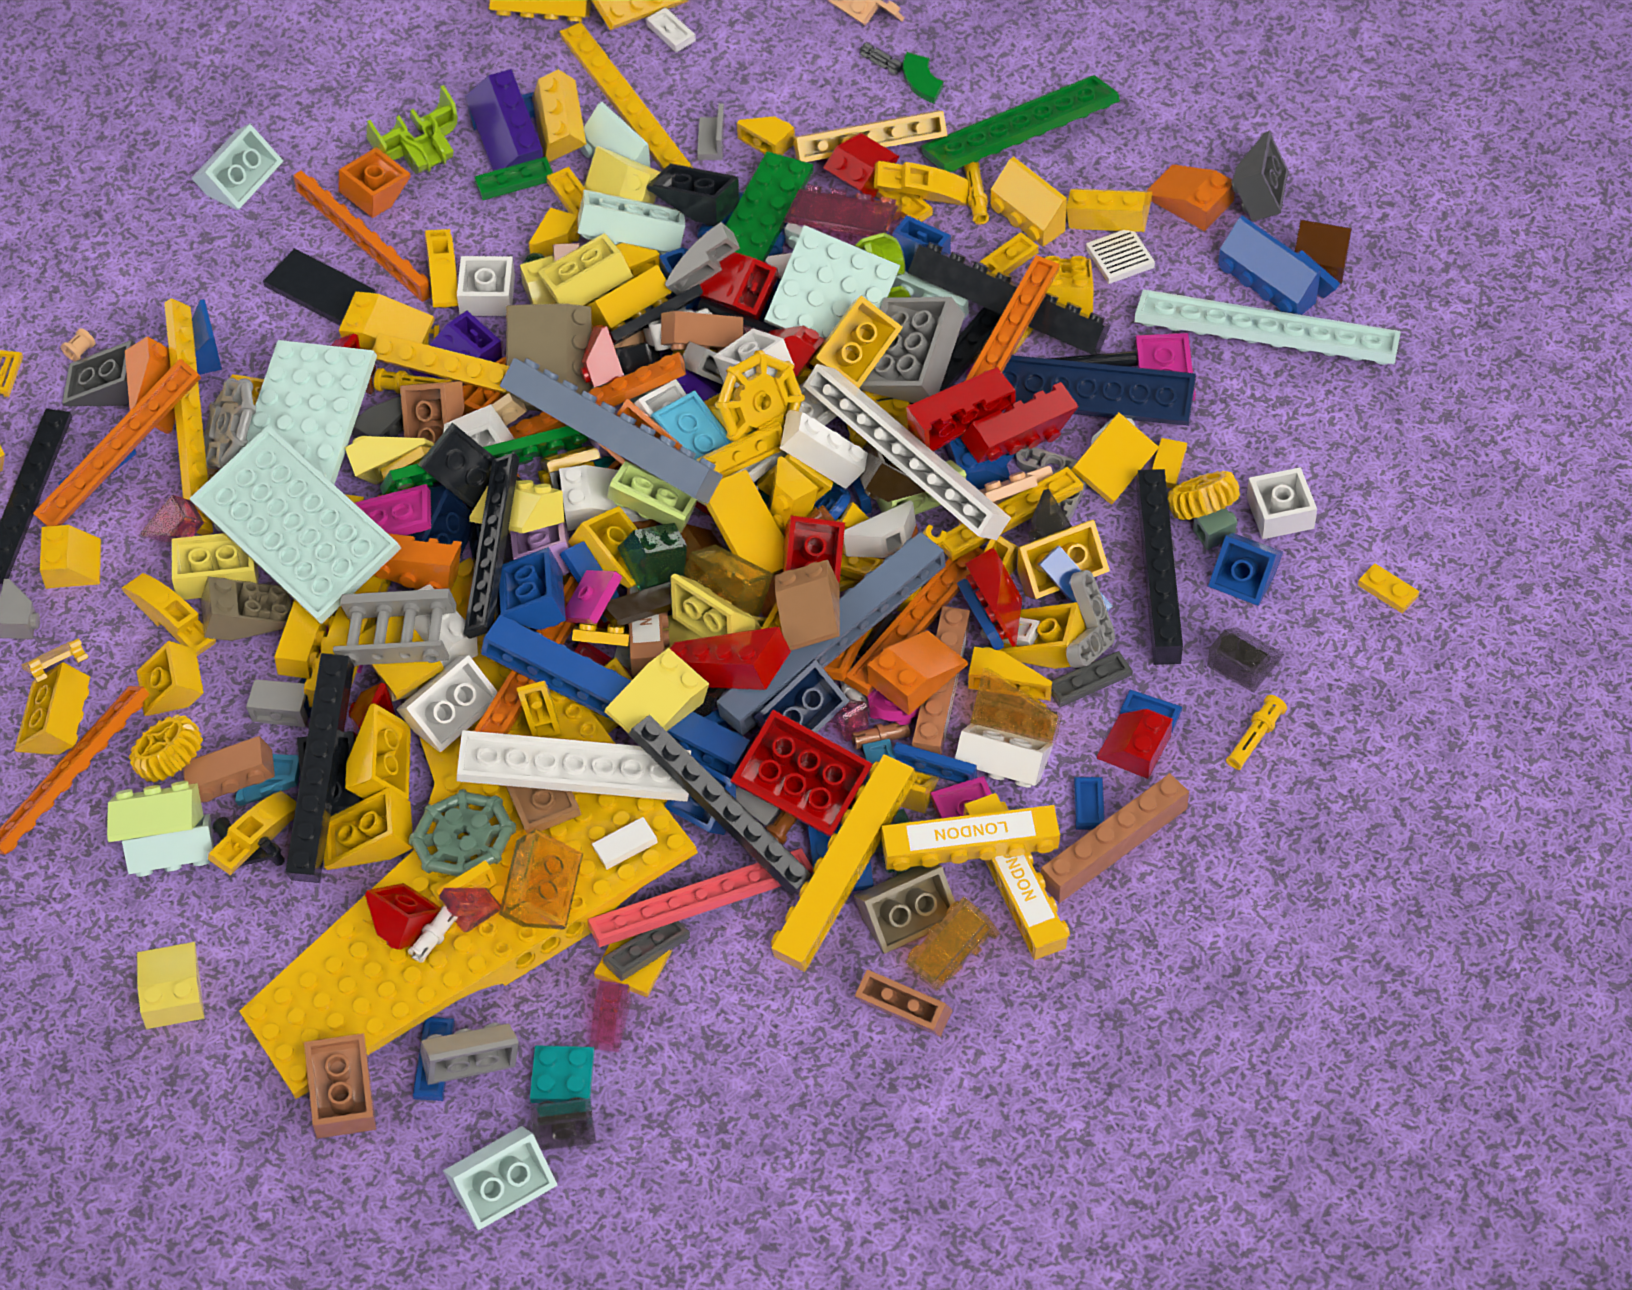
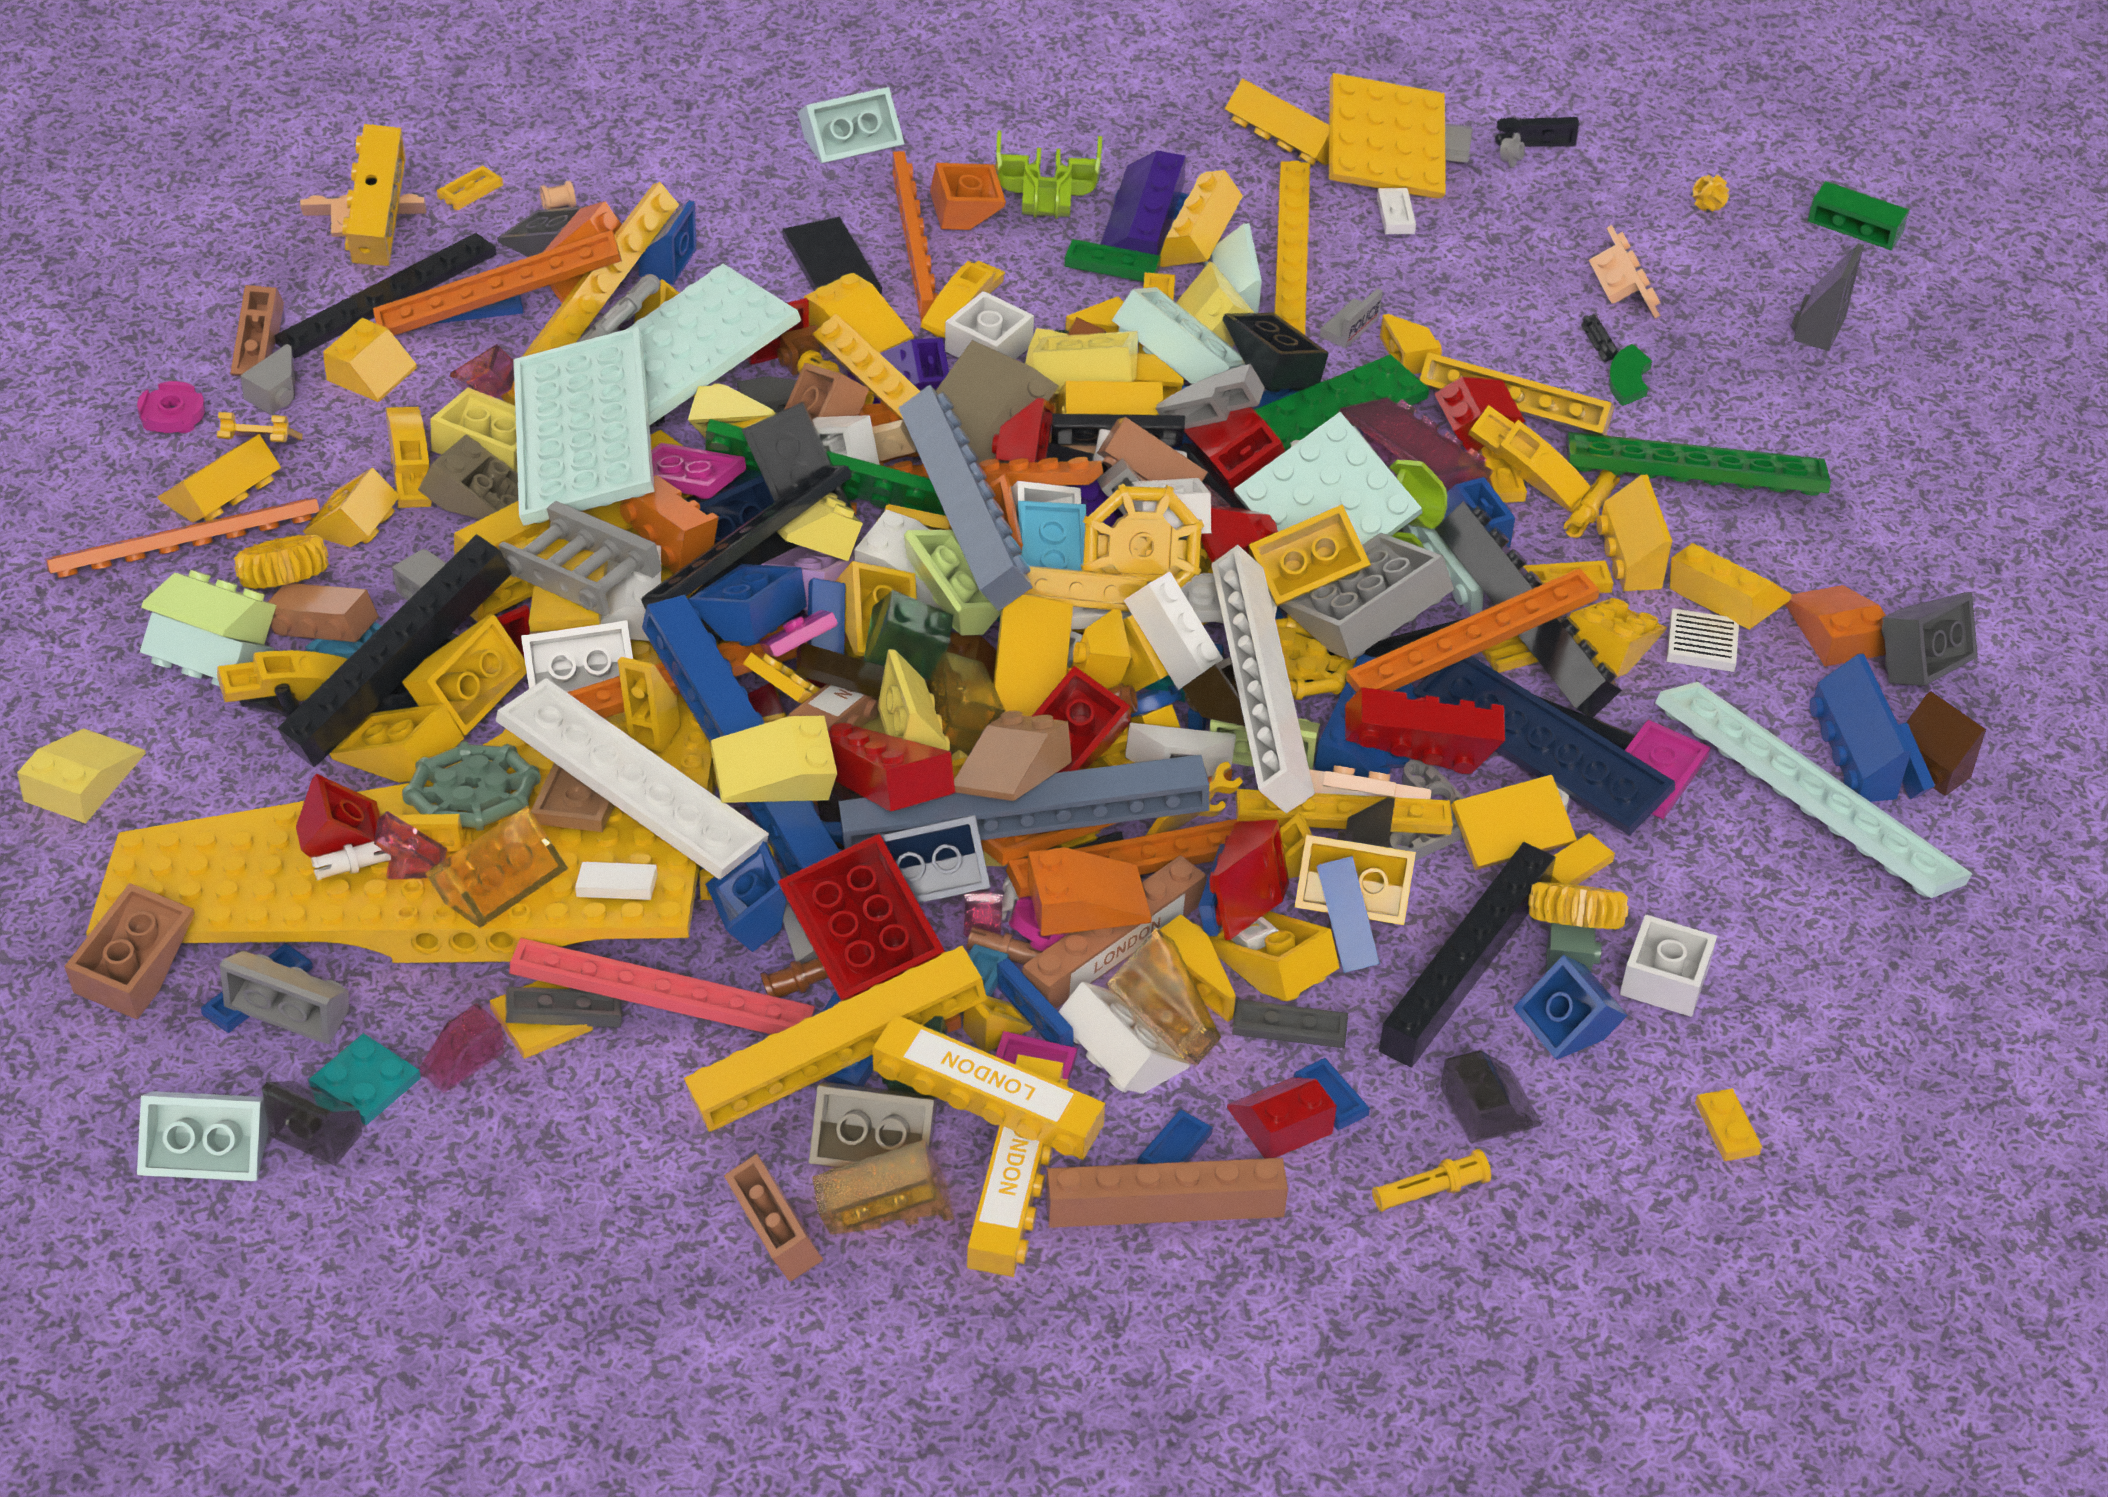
camera: 30 degrees right, 10 degrees down
(720, 804) = (749, 900): plate -> none
(951, 411) = (1338, 663): red wedge -> none
(1099, 630) = (1333, 974): light grey beam -> none

